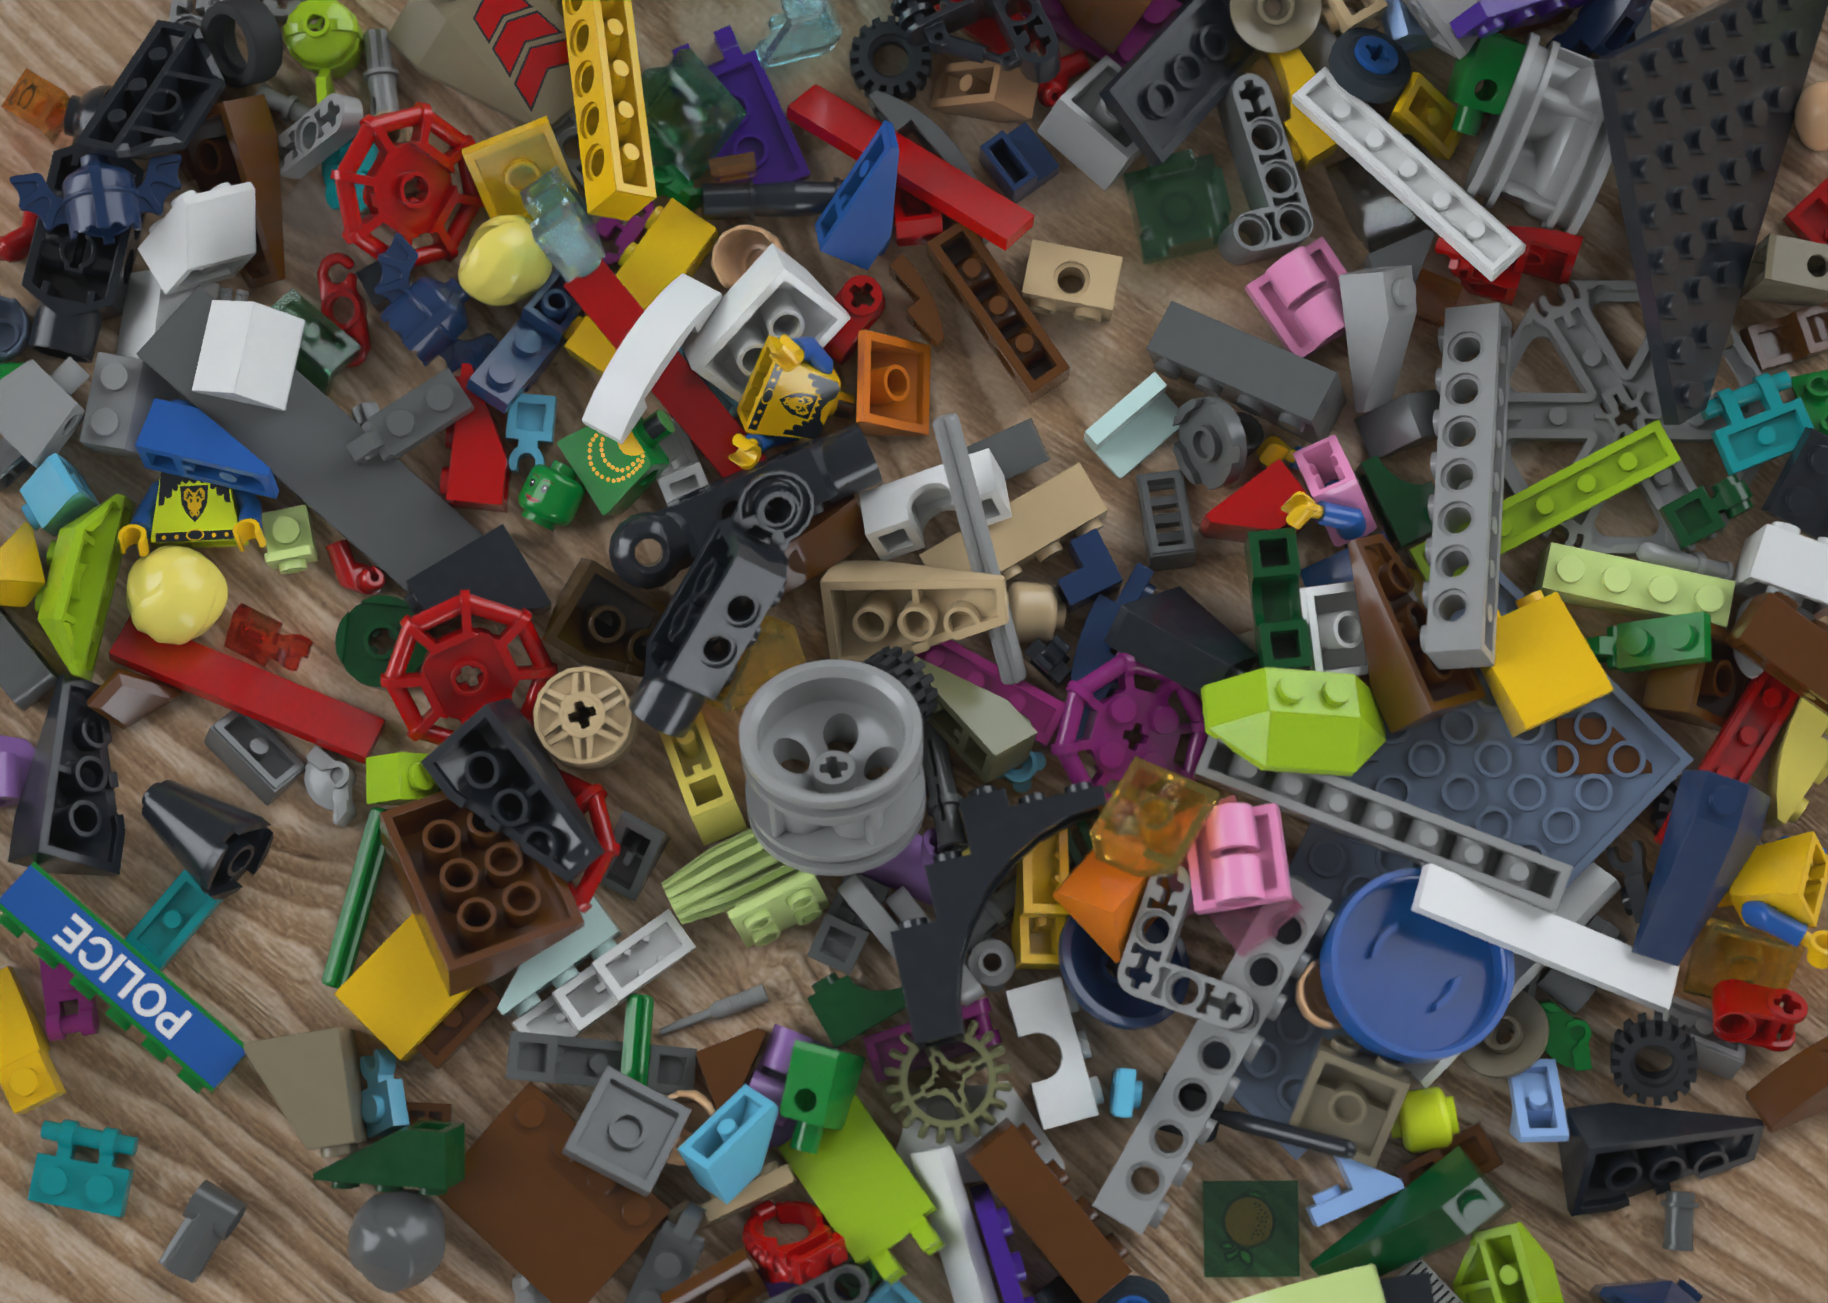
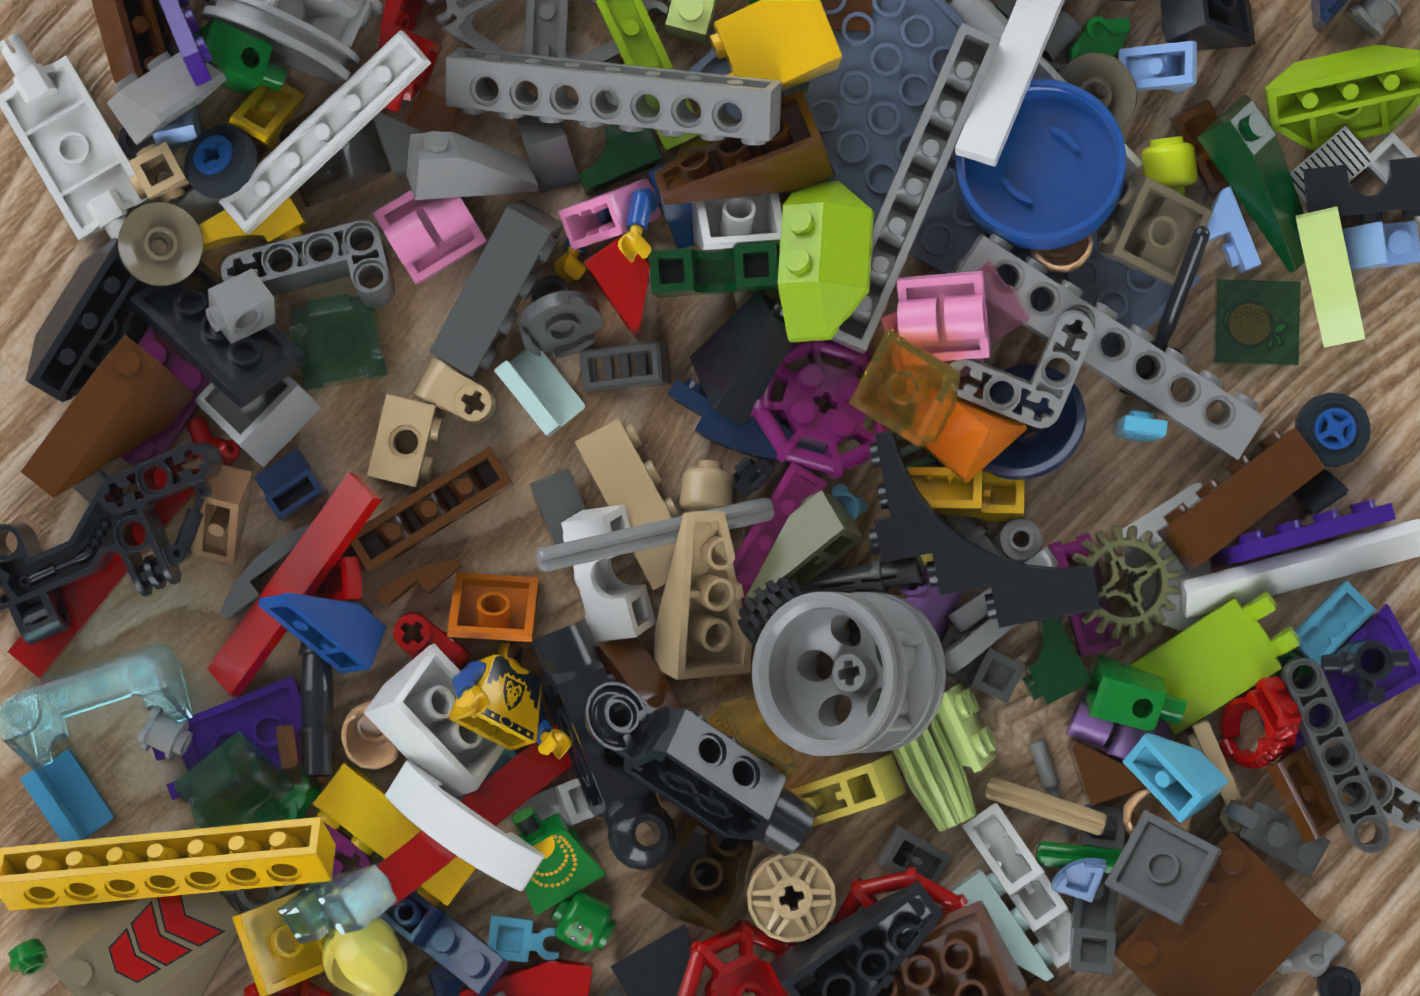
camera: 90 degrees left, 5 degrees up
(613, 1042) = (1080, 878): none -> medium blue tile
(693, 1003) = (1046, 806): none -> tan axle
(742, 36) = (165, 734): none -> light grey brick
(866, 75) = (207, 617): black tyre -> none
(1047, 1011) = (1136, 478): white arch -> none
(1094, 575) = (673, 431): dark blue piece -> none
(1128, 331) = (451, 390): none -> tan piece
(1210, 91) = (240, 306): none -> light grey brick

